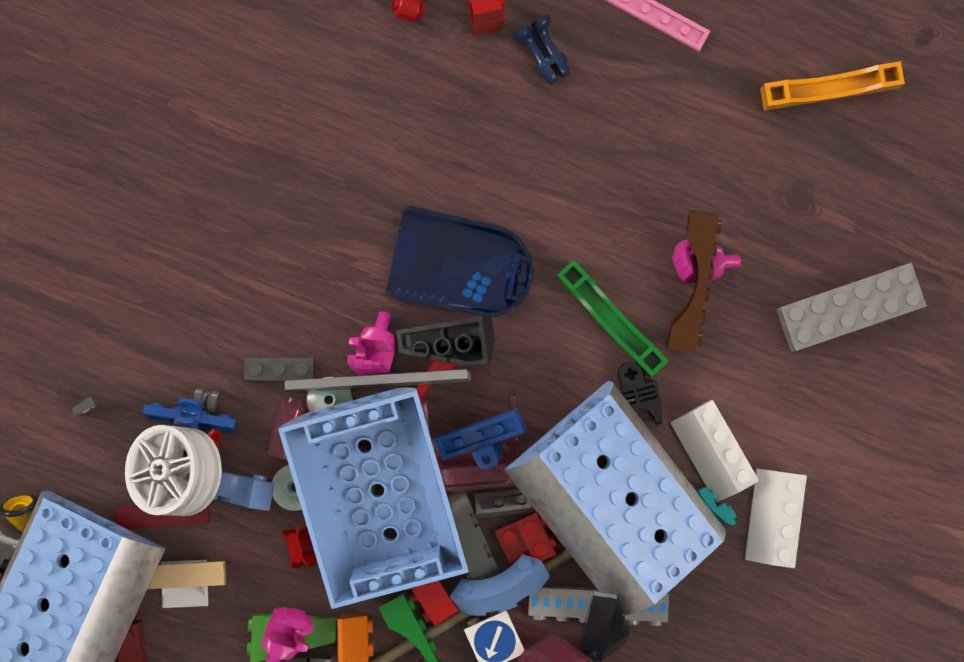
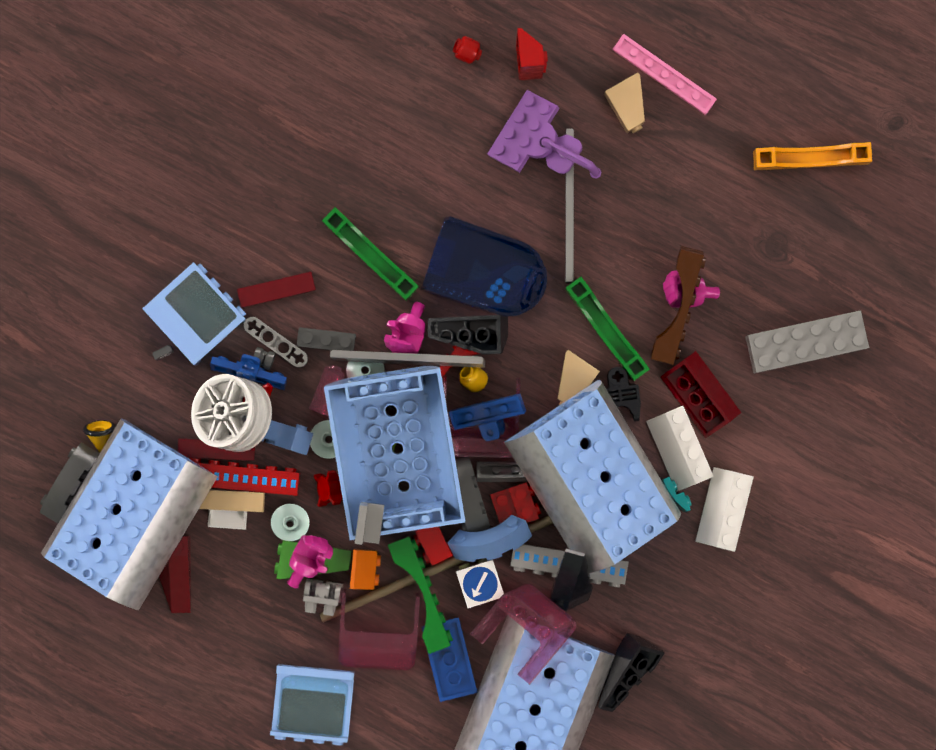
camera: 10 degrees right, 0 degrees up
(118, 354) = (194, 313): none -> panel
(208, 544) = (252, 478): none -> red brick
(212, 315) = (276, 289): none -> dark red tile
(220, 376) = (278, 339): none -> light grey beam
(255, 581) = (291, 513): none -> light aqua dish
(319, 261) = (370, 254): none -> green arch
(352, 587) = (369, 523): none -> light grey panel
(459, 396) = (473, 378): none -> yellow head
(494, 92) = (529, 131): none -> medium lavender plate
(526, 37) = (574, 115): dark blue piece -> none
(550, 176) = (569, 221): none -> light grey tile
(580, 380) = (575, 376): none -> tan slope
(605, 47) = (628, 103): none -> tan slope
(732, 384) = (700, 394): none -> dark red slope

